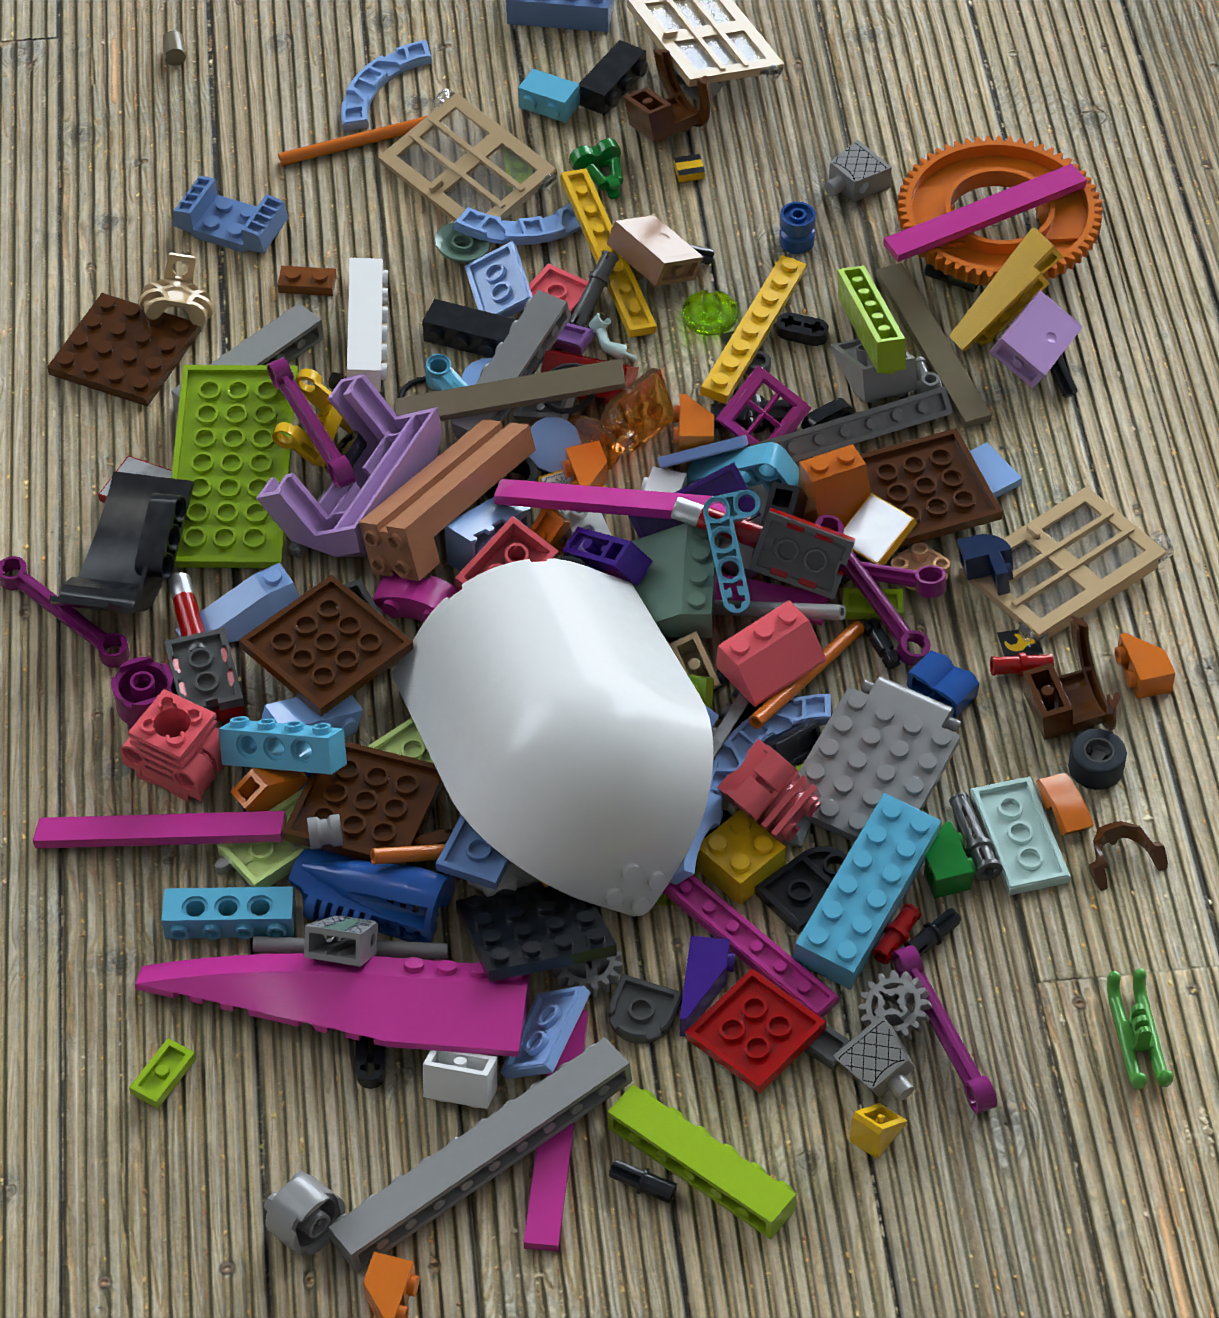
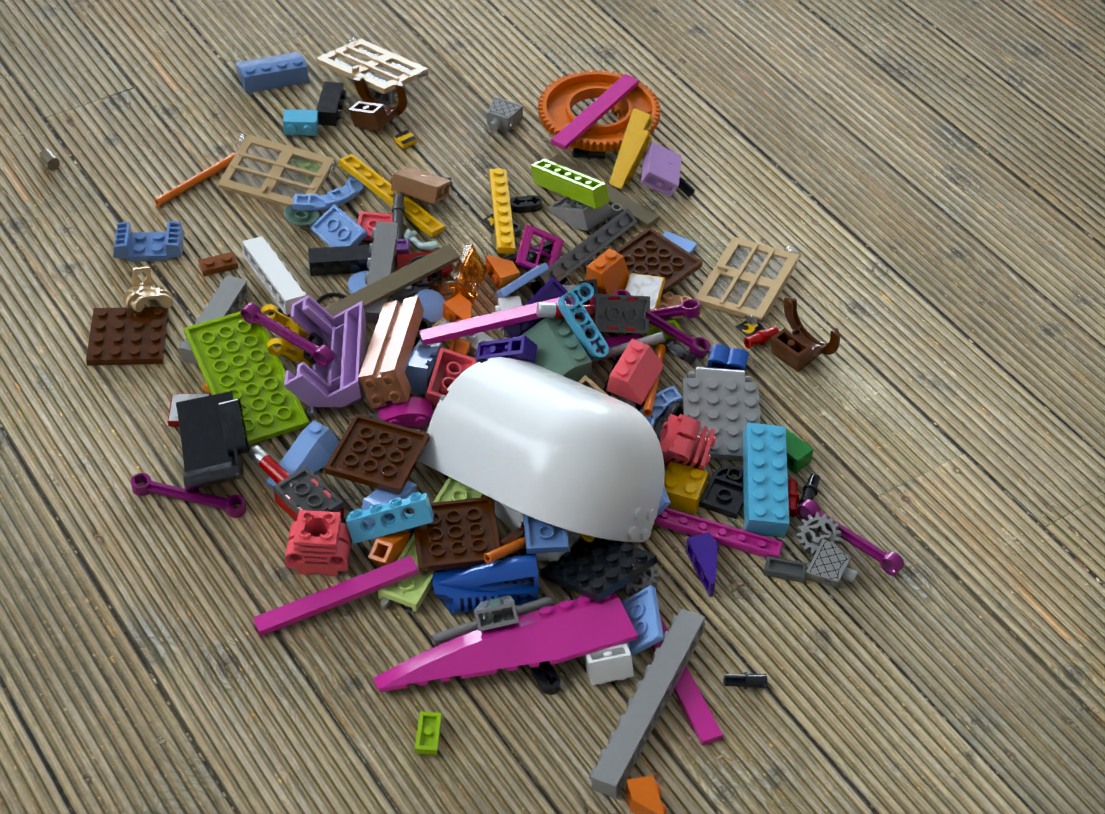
camera: 30 degrees left, 5 degrees down
(138, 686) = (274, 521): magenta brick -> none
(241, 903) = (408, 627): medium azure brick -> none
(303, 1213) = (570, 776): light grey brick -> none
(325, 831) = (448, 555): light grey wheel -> none
(374, 76) = (185, 141): light blue tile -> none
(441, 375) = (338, 289): medium azure piece -> none
(604, 154) = (351, 146): green piece -> none
(642, 1010) = (680, 590): dark grey tile -> none
(702, 1160) = (770, 656): lime brick -> none
(710, 312) = (468, 211): clear neon green tile -> none
(755, 1030) = (752, 576): red plate -> none
(756, 464) = (565, 272): medium azure beam -> none
(797, 227) = (490, 151): blue wheel -> none
(830, 411) = (571, 242): black beam -> none
(875, 1128) = (850, 604): yellow slope -> none
(963, 808) = (805, 435): dark grey pin -> none
(987, 556) = (711, 286): dark blue brick -> none
(1020, 835) = (818, 425): light aqua tile -> none
(1066, 802) = (827, 395): orange slope -> none
(1097, 759) = (833, 371): black wheel -> none
(1111, 834) = (870, 402): reddish brown helmet -> none
(1137, 1032) = (947, 501): bright green piece -> none
(1145, 666) = (825, 316): orange slope -> none

